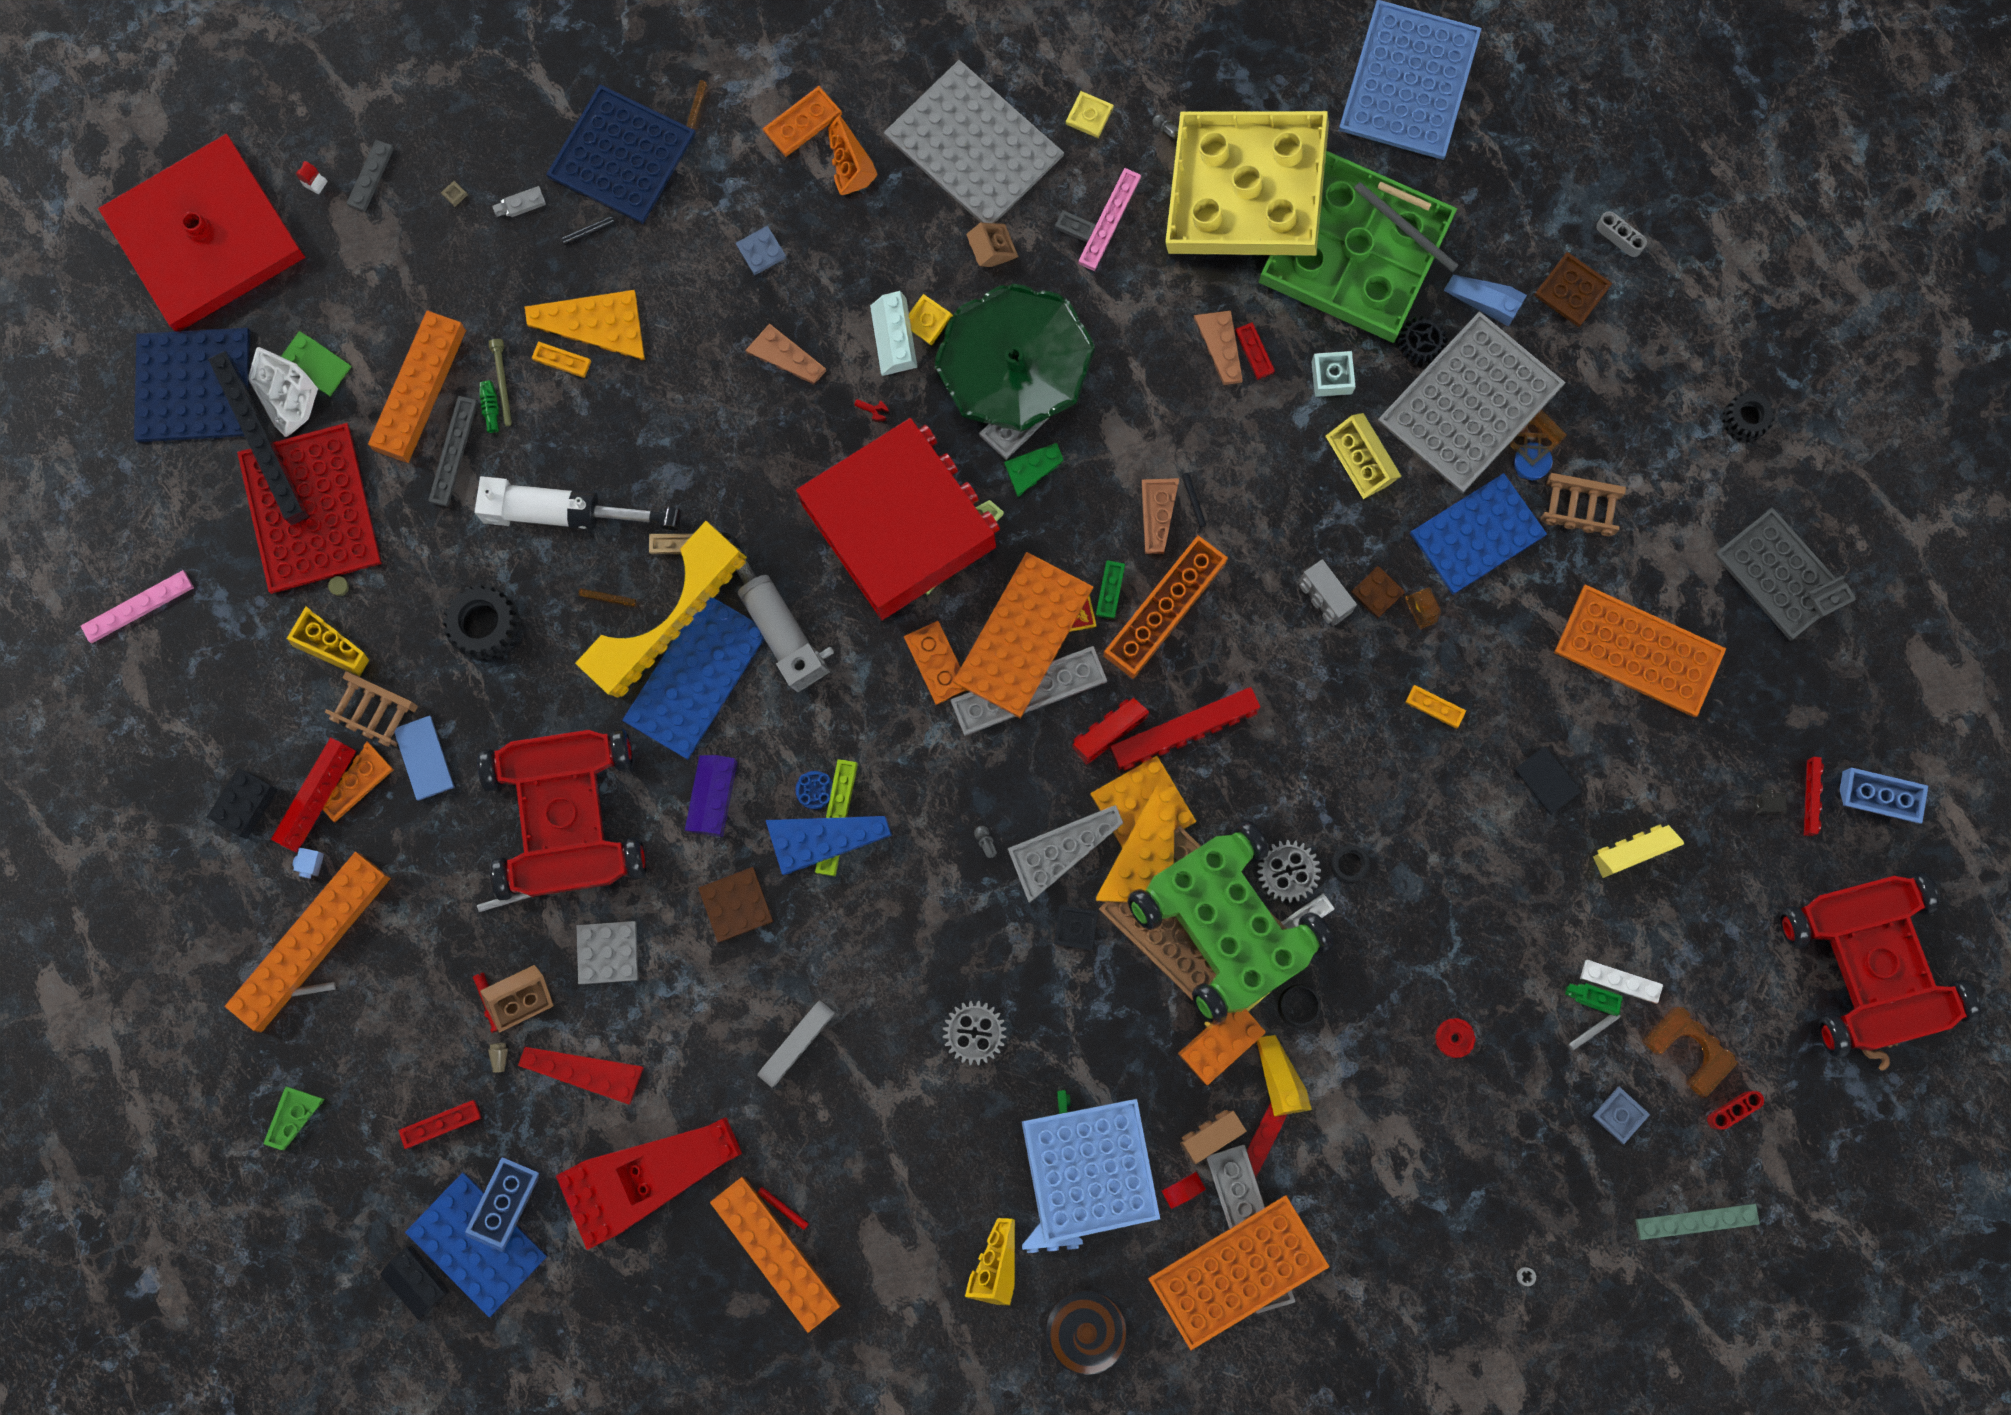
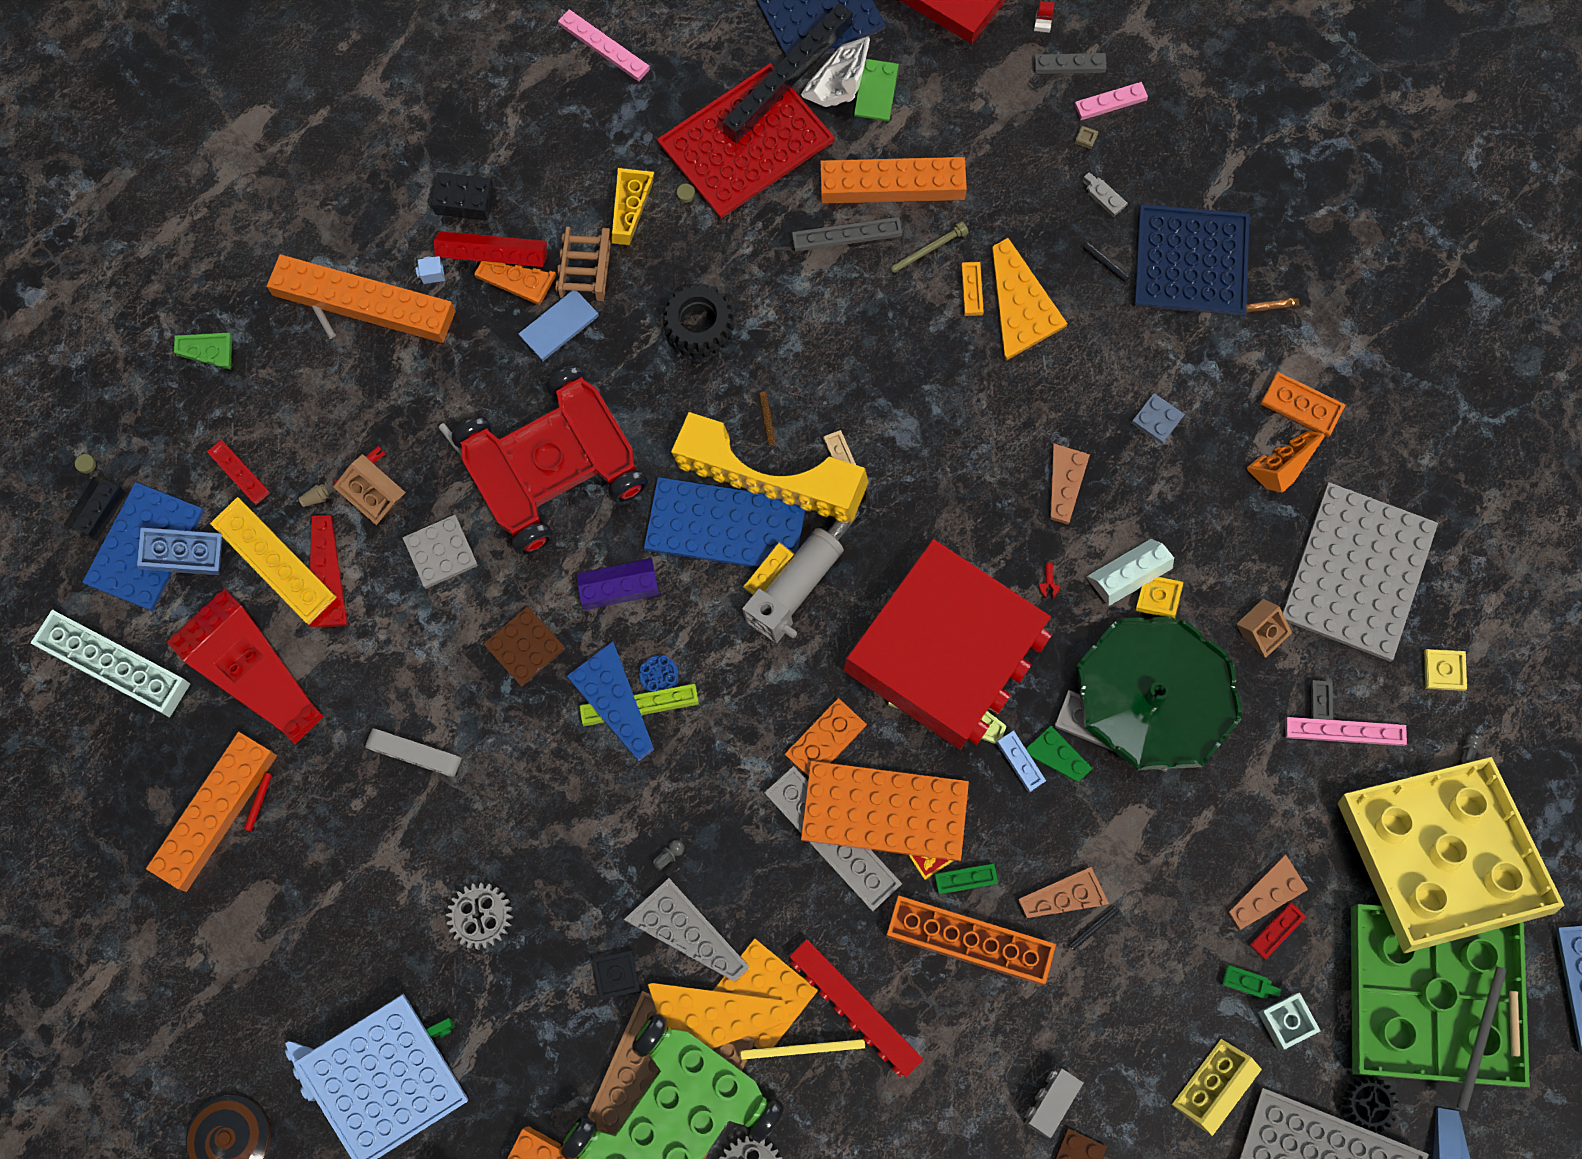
camera: 70 degrees right, 5 degrees down
(362, 1278) = (85, 463): none -> olive tile
(427, 156) = (1111, 101): none -> bright pink plate
(489, 405) = (902, 246): green hinge -> none
(501, 502) = (816, 296): white piece -> none
(548, 1117) = (273, 560): none -> yellow plate
(586, 1310) = (110, 663): none -> light aqua brick
(758, 651) = (769, 569): none -> yellow plate
(995, 1274) = (254, 1026): yellow wedge -> none
(1026, 500) = (1020, 761): none -> light blue plate
(1110, 731) = (822, 932): red slope -> none
(1203, 787) = (802, 1049): none -> light yellow tile
(1289, 392) = (1249, 983): none -> green hinge

